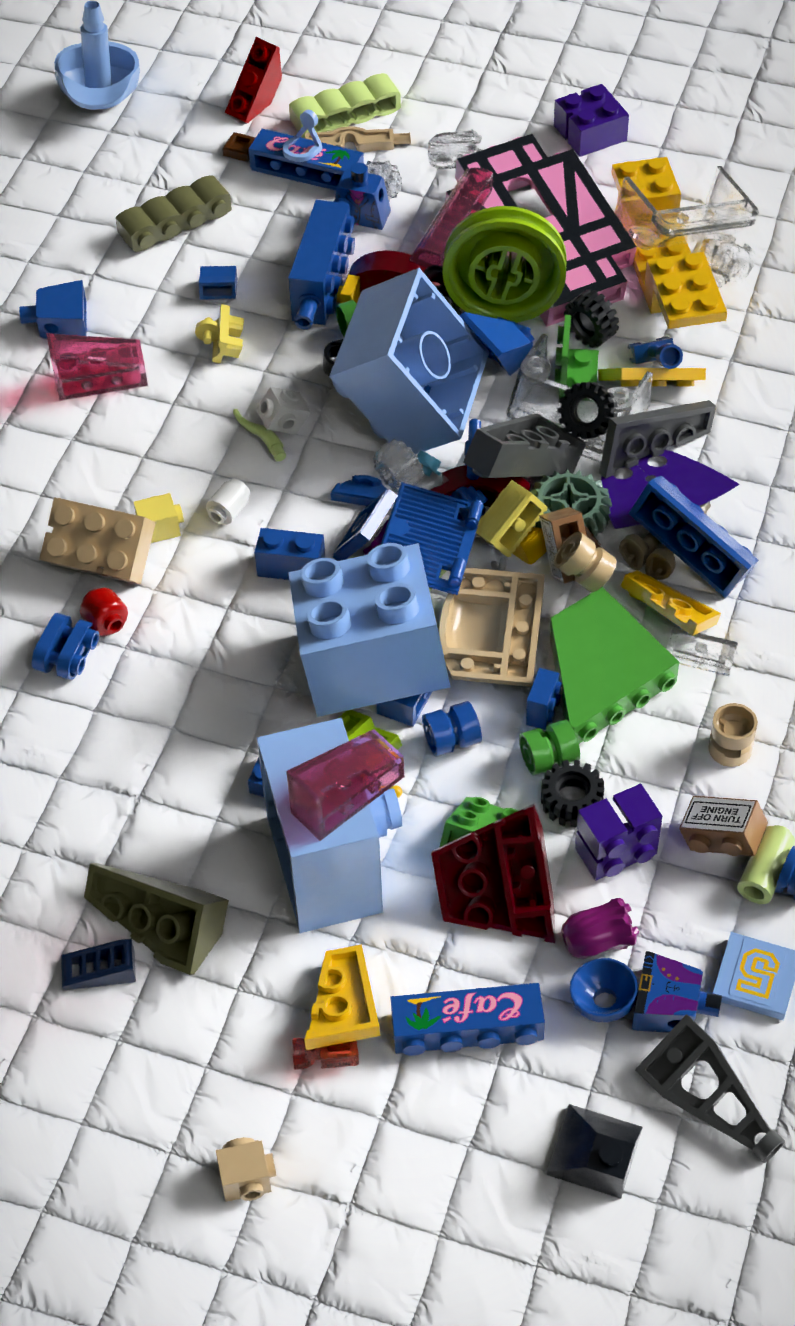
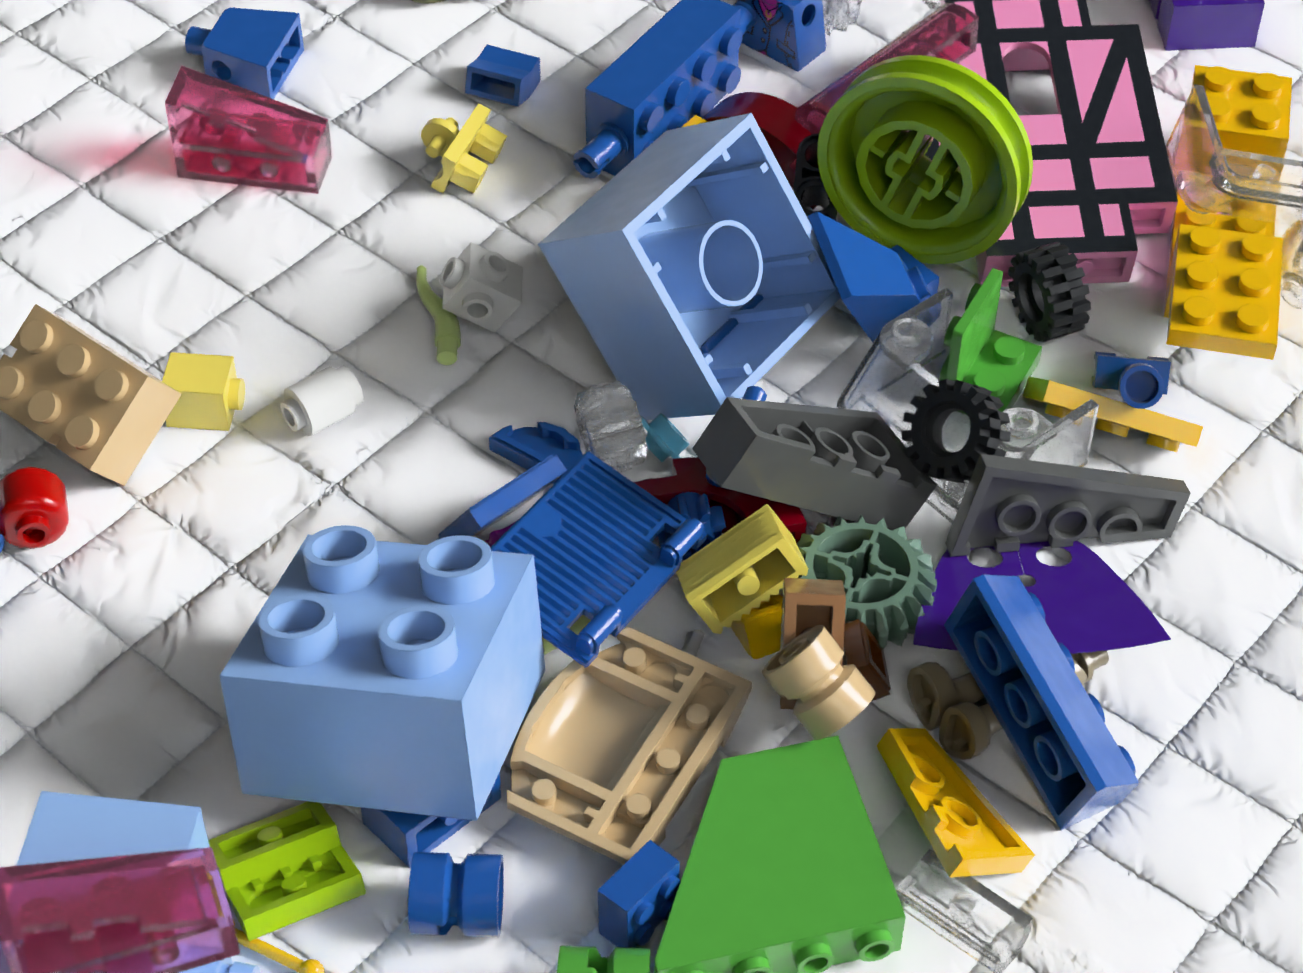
camera: 20 degrees right, 5 degrees down
(286, 551) = (358, 497): blue brick -> none

